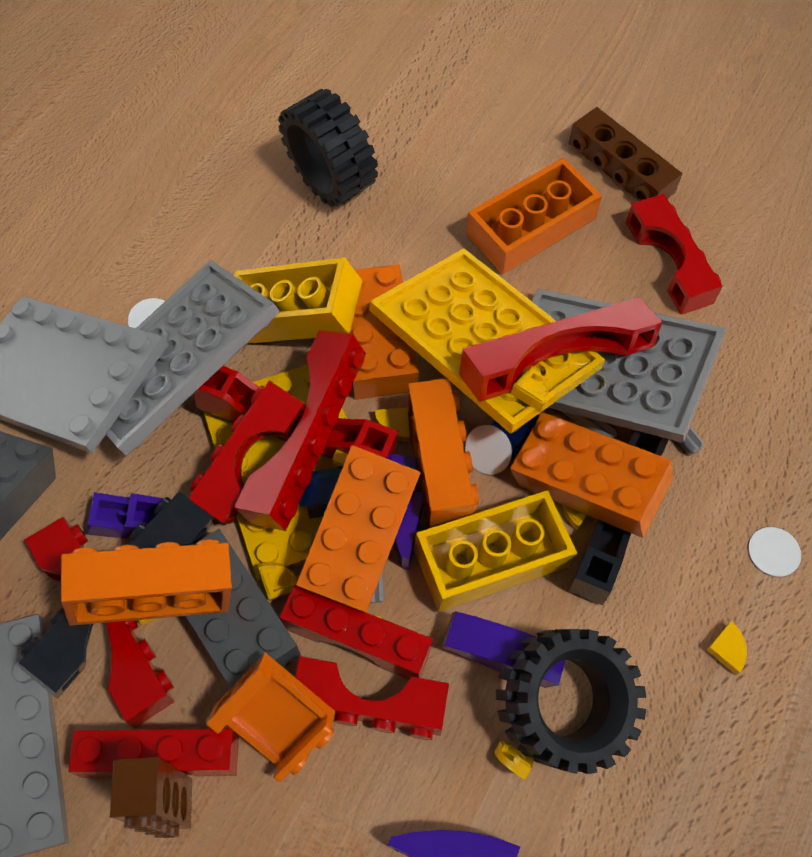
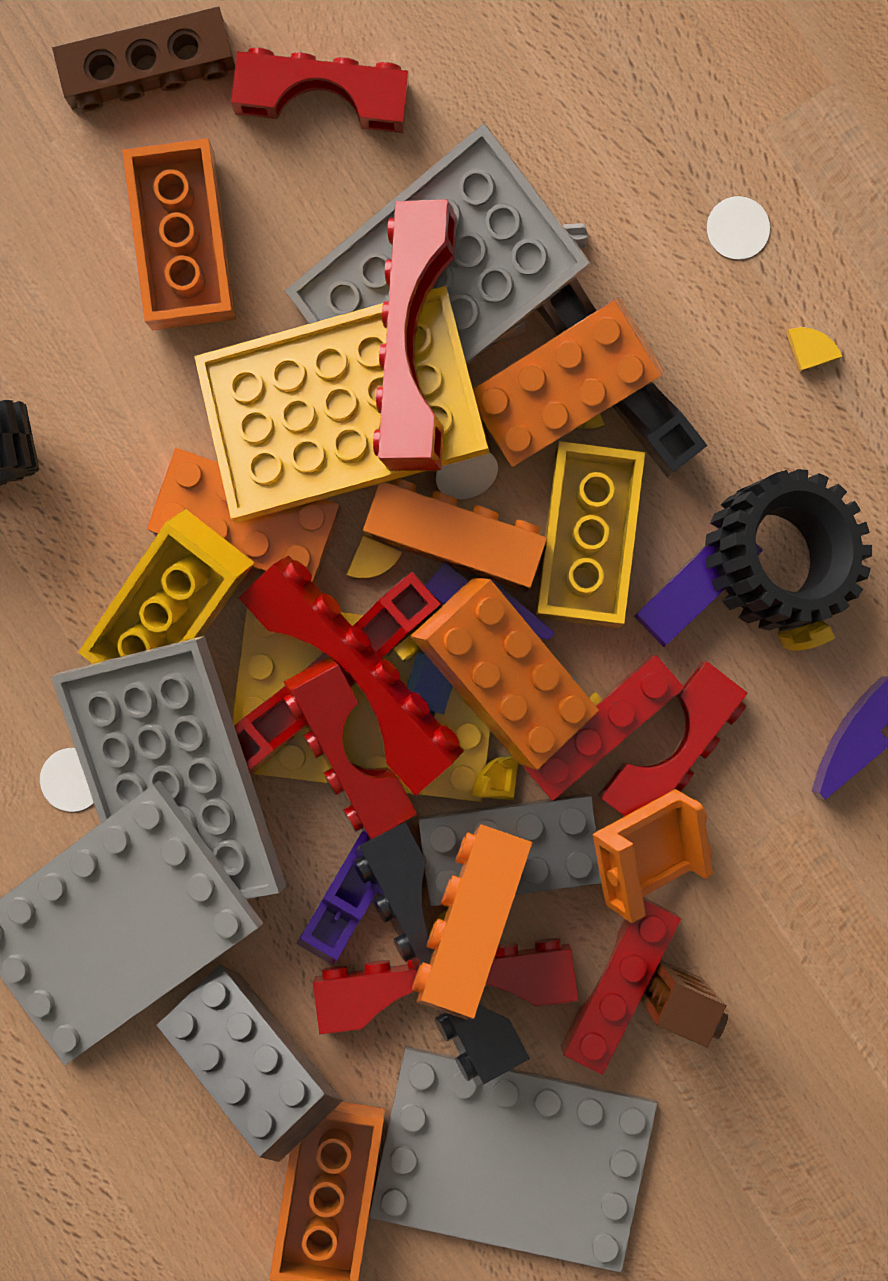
camera: 70 degrees left, 25 degrees up
(531, 389) = (452, 399): yellow tile -> none

